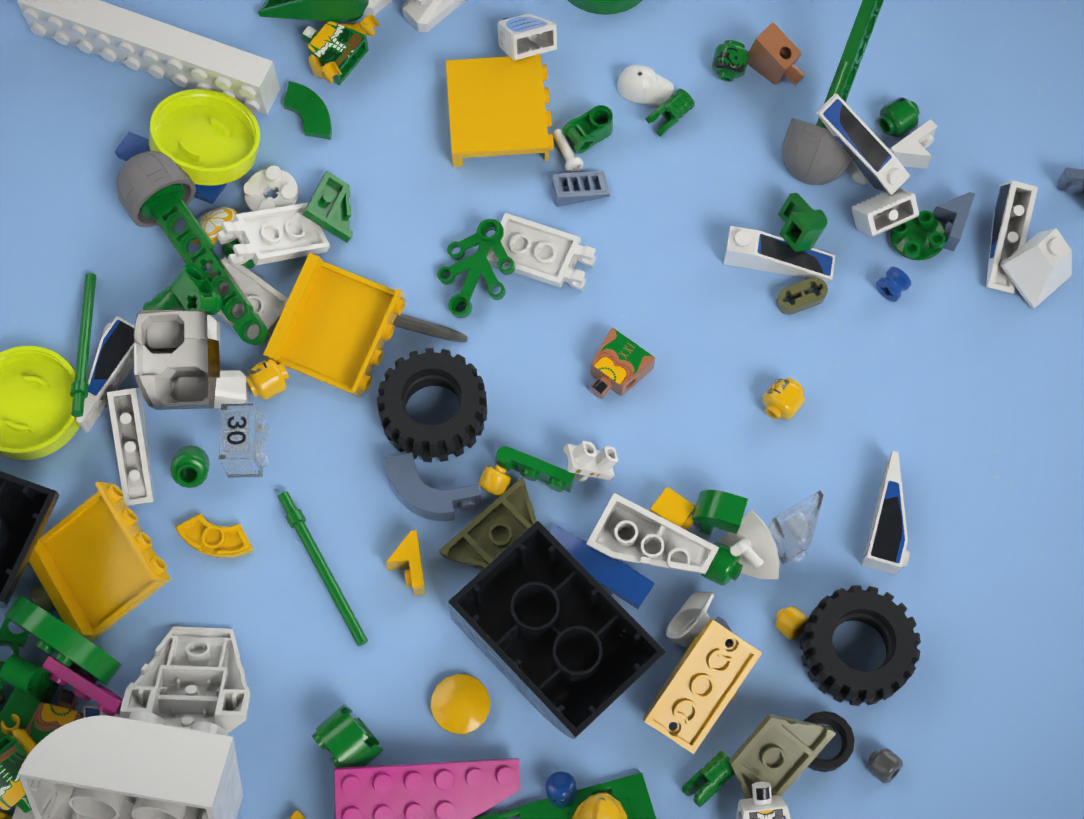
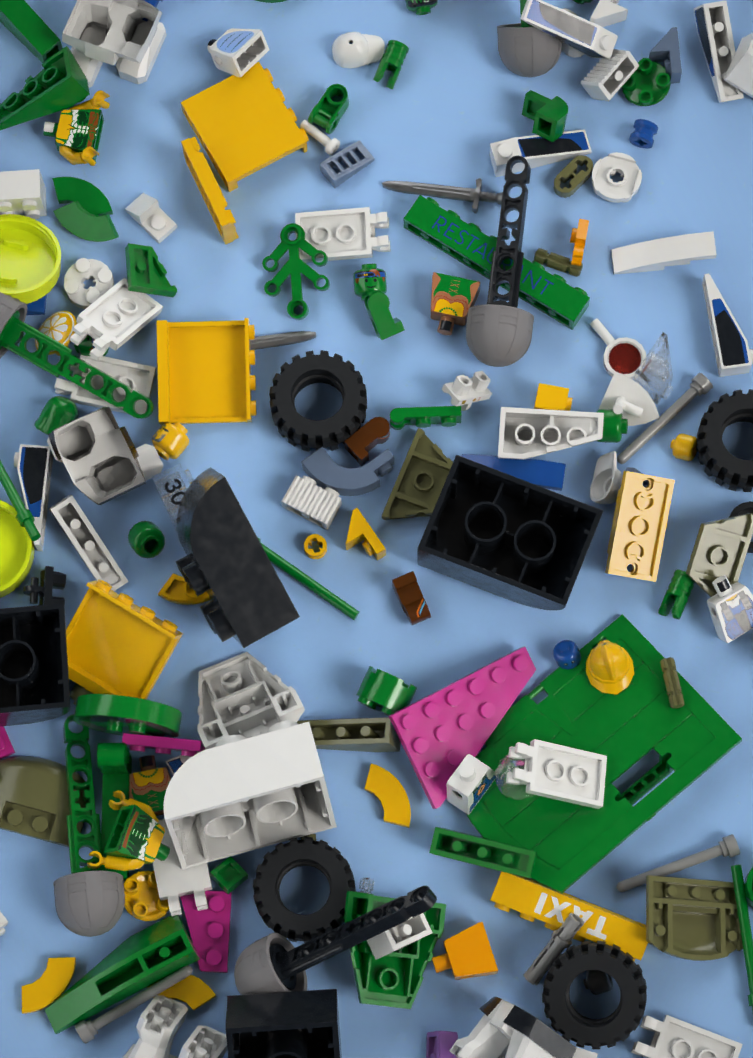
camera: 20 degrees left, 5 degrees up
(74, 464) = (48, 580): none -> black hips
(195, 290) = (76, 394): green piece -> none
(243, 531) = (229, 564): none -> black brick
(286, 766) = (355, 734): none -> olive slope
(296, 136) = (86, 225): none -> green tile
(364, 158) = (151, 217): none -> white slope
(365, 548) = (310, 552): none -> yellow bush
(376, 504) = (312, 501): none -> white brick
(427, 651) = (411, 598): none -> reddish brown leg
(430, 154) = (209, 189): none -> yellow piece
(460, 704) = (457, 627): yellow dish -> none
(464, 465) = (367, 437): none -> reddish brown leg
(494, 480) = (398, 439): yellow piece -> none
(539, 335) = (378, 310): none -> green leg
(544, 311) = (369, 279): none -> green head
(650, 413) = (500, 330): none -> piece
(683, 347) = (475, 249): none -> green brick
(692, 271) = (449, 192): none -> flat silver sword
(719, 510) = (590, 384): green brick -> none
(746, 373) = (557, 262): none -> olive axle
(768, 495) = (620, 355): none -> piece
(779, 358) = (578, 237): none -> light orange plate
(783, 399) = (598, 270): yellow head -> none
(835, 565) = (699, 386): none -> light grey piece
(845, 331) = (613, 191): none -> white plate
(860, 410) = (663, 252): none -> white slope

